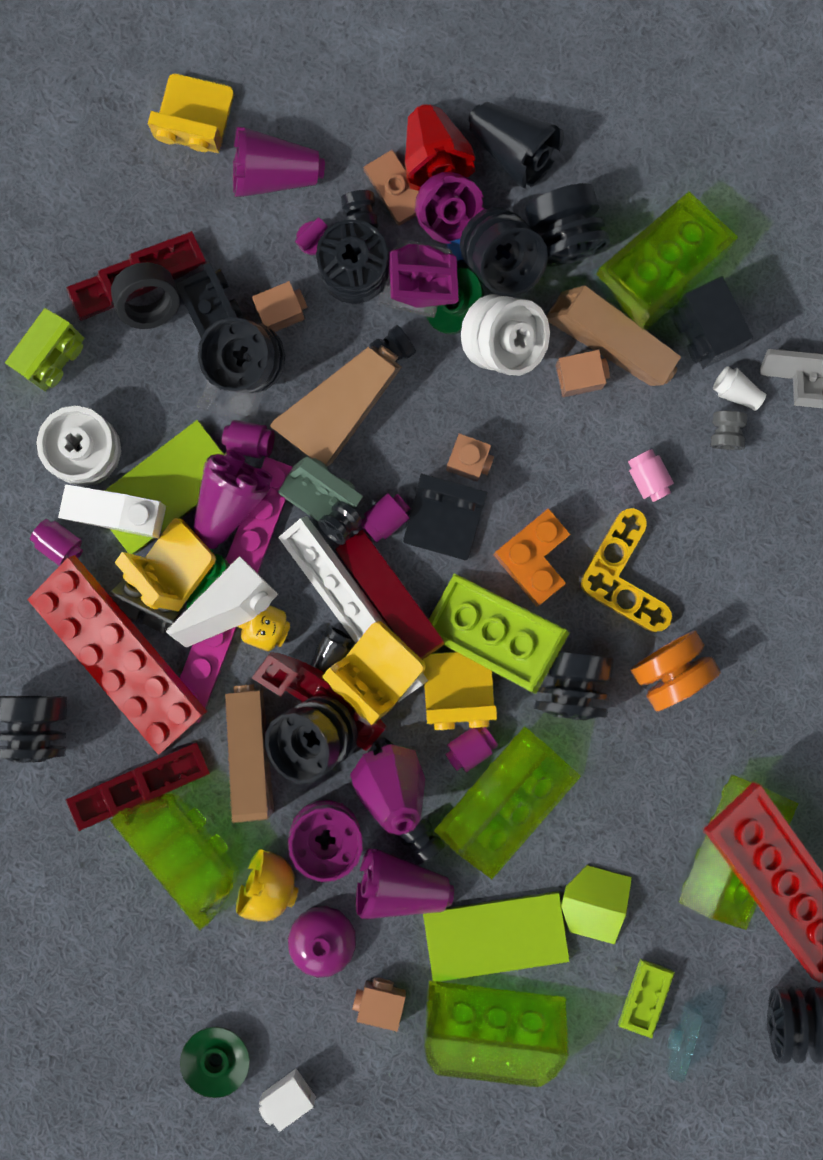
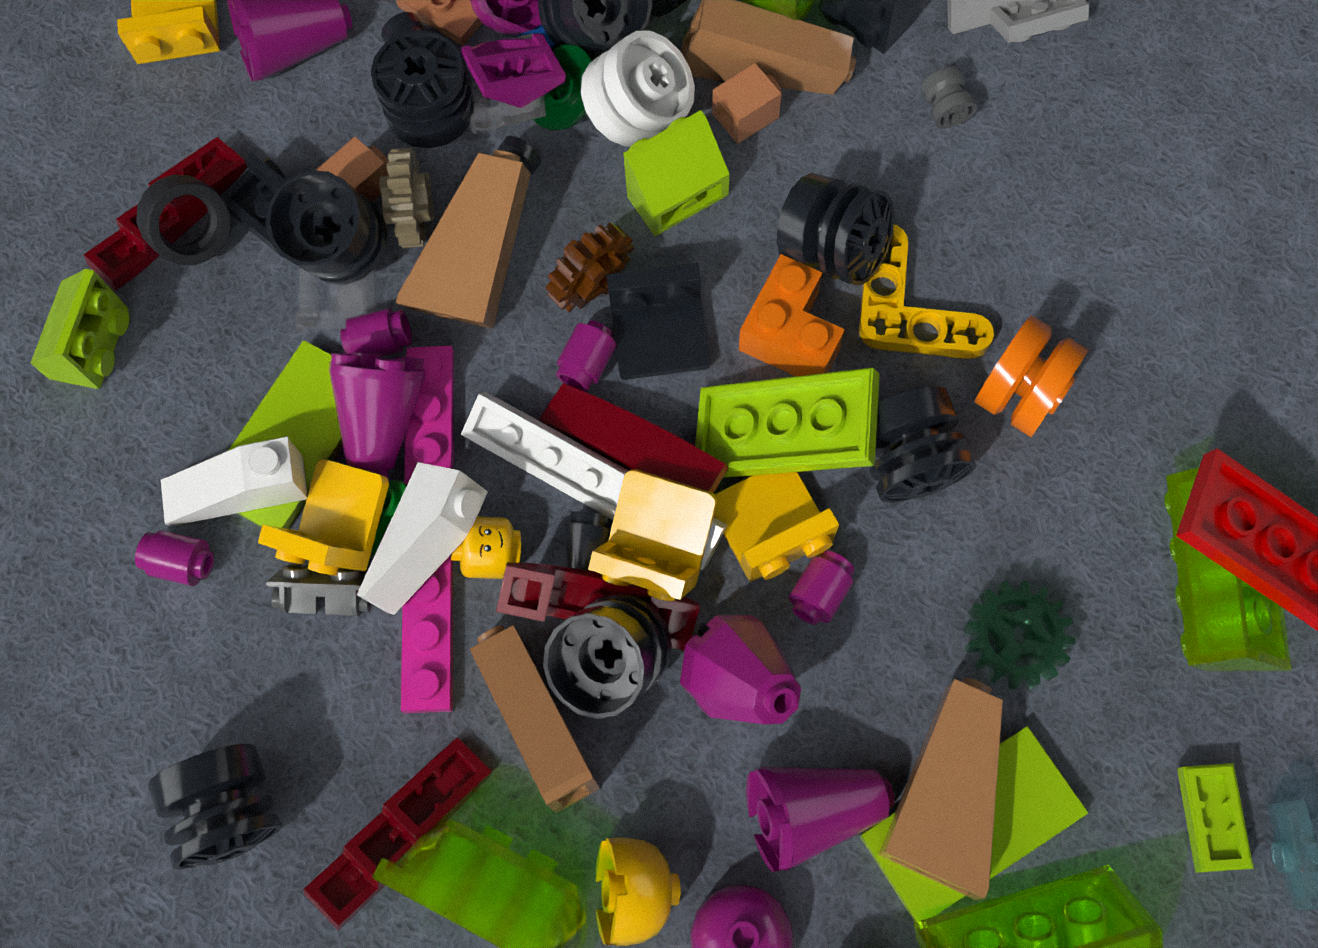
camera: 20 degrees left, 15 degrees down
(59, 442) = (160, 423): white wheel -> none
(116, 654) = (307, 665): plate -> none
(307, 348) = (407, 197): none -> dark tan gear
(309, 235) = (361, 92): magenta plate -> none
(316, 489) = (490, 354): sand green bracket -> none
(340, 522) = (531, 377): black wheel -> none
(340, 854) = (698, 757): magenta wheel -> none
(413, 458) = (584, 266): none -> reddish brown gear
(422, 841) = (811, 733): black wheel -> none
(470, 458) = (658, 240): nougat brick -> none
(485, 918) = (950, 797): none -> medium nougat slope
(504, 410) = (675, 173): none -> lime slope
(507, 803) = (902, 635): clear neon green slope -> none
(594, 506) = (836, 227): none -> black wheel
(595, 825) = (1036, 642): none -> clear green gear
(596, 903) = (1084, 721): lime slope -> none
(650, 475) = (885, 174): bright pink brick -> none
(736, 387) = (934, 52): white cone -> none

